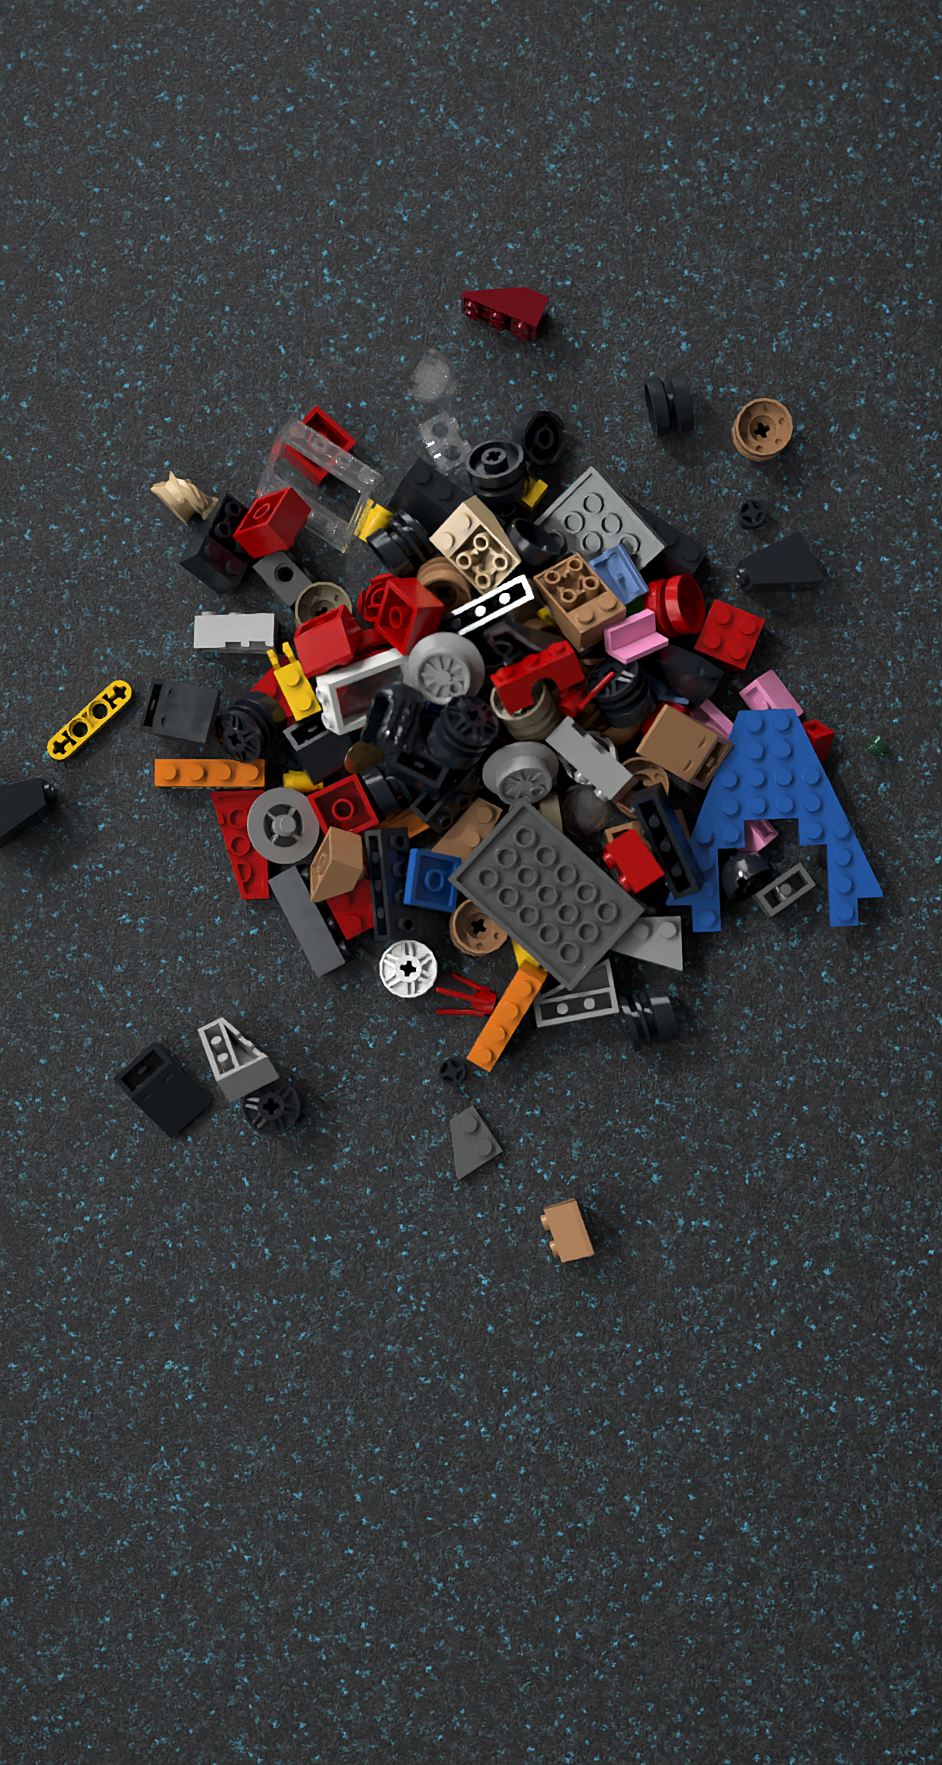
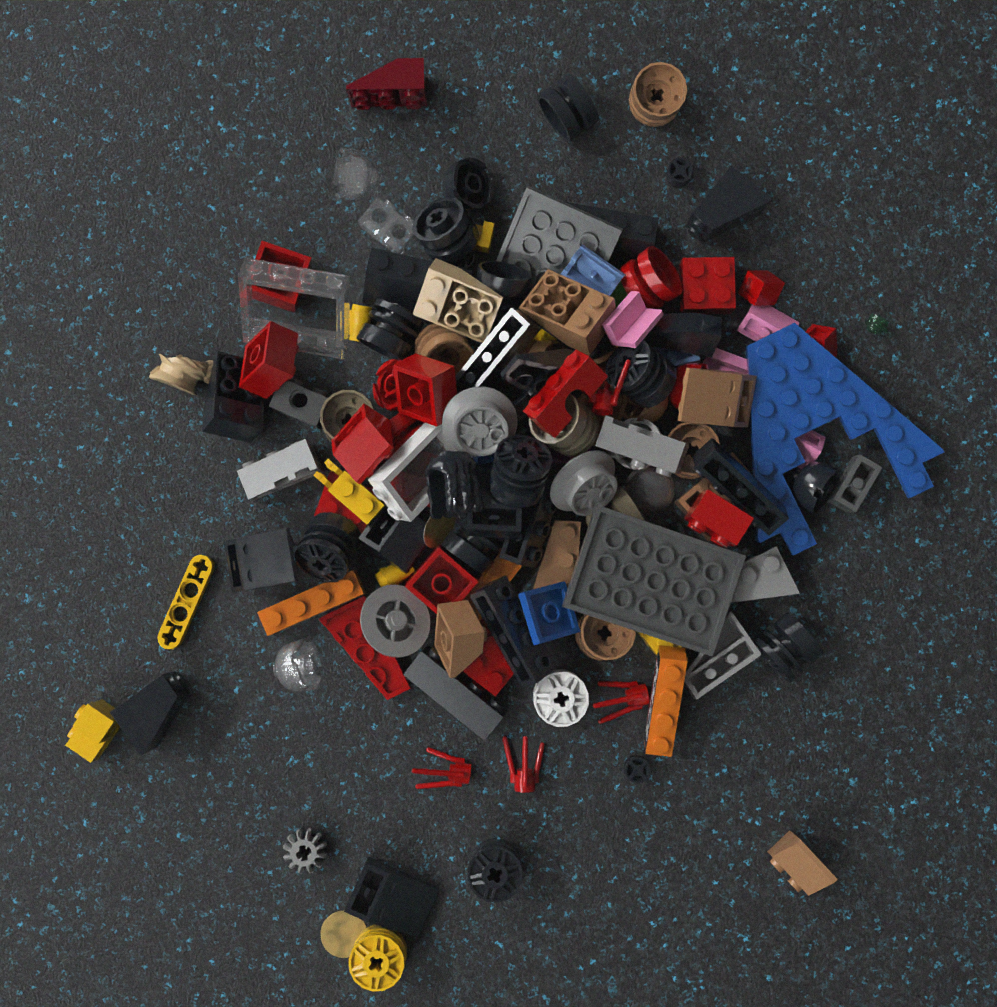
camera: 25 degrees left, 0 degrees up
(101, 1105) = (340, 933): none -> pearl gold sticker
(104, 1015) = (301, 860): none -> light grey gear
(132, 1123) = (377, 943): none -> yellow wheel
(170, 828) = (297, 665): none -> clear cylinder
(234, 1060) = (444, 849): light grey wedge -> none
(278, 999) = (457, 775): none -> red plant
(340, 1032) = (525, 778): none -> red plant
(471, 1142) = (680, 822): dark grey wing -> none
(780, 661) = (761, 287): none -> red panel

